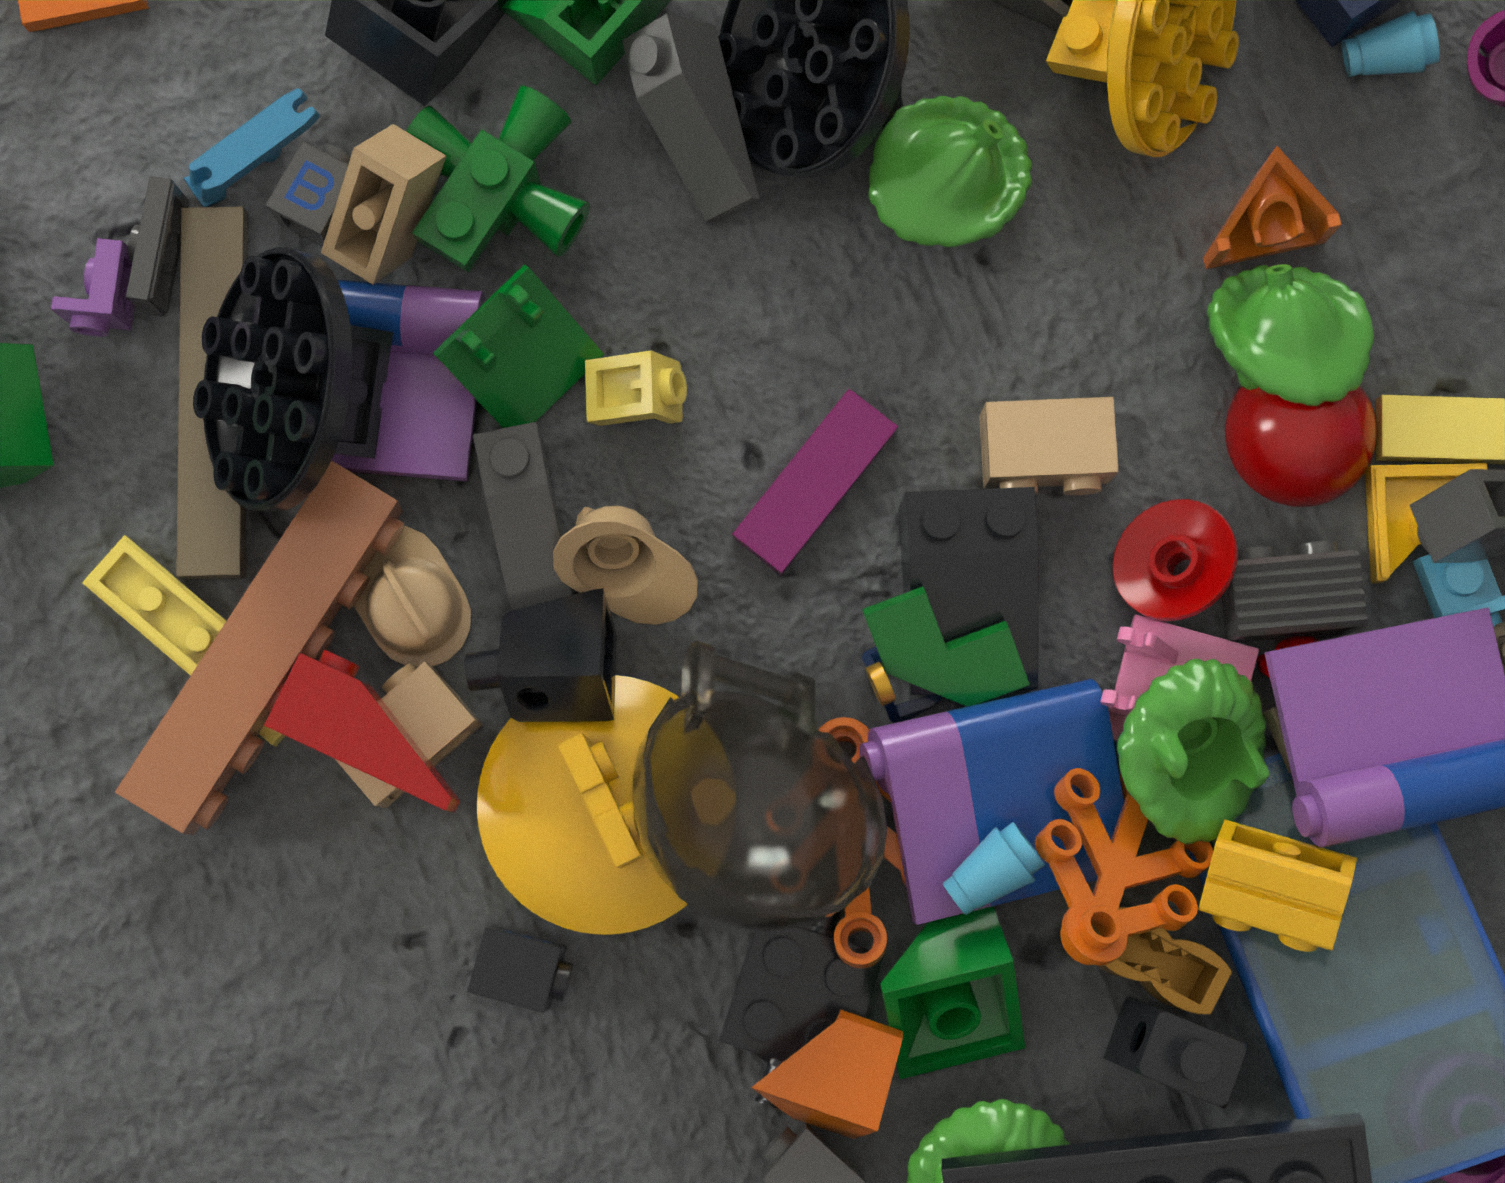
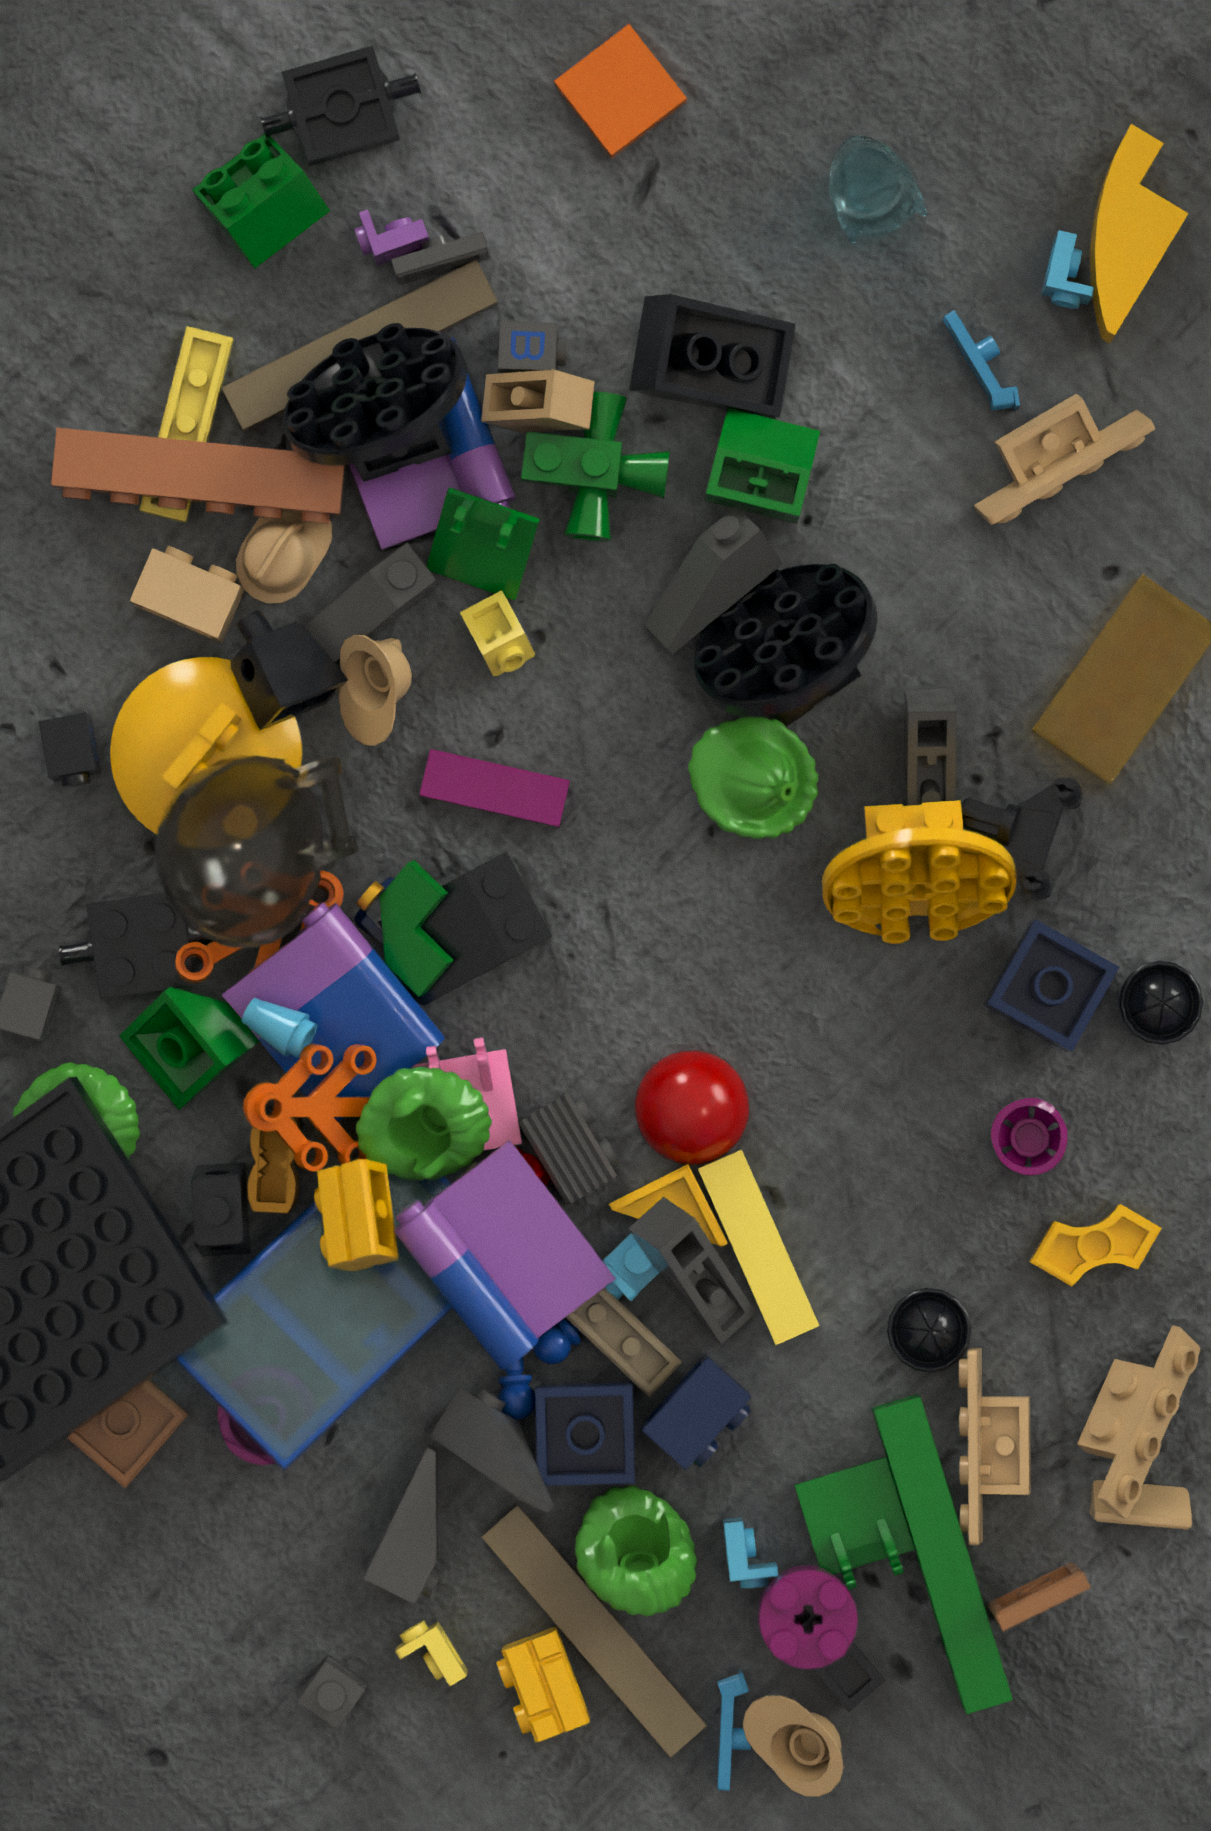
camera: 65 degrees right, 5 degrees up
(249, 146) = (540, 284): dark azure piece -> none
(351, 723) = (174, 557): red slope -> none
(838, 1077) = (98, 987): orange slope -> none
(1049, 444) = (593, 934): tan brick -> none
(1161, 540) = (550, 1042): red dish -> none
(1274, 216) = (827, 1012): orange slope -> none
(1292, 333) = (749, 1064): bright green piece -> none
(1393, 47) = (999, 1046): medium azure cone -> none

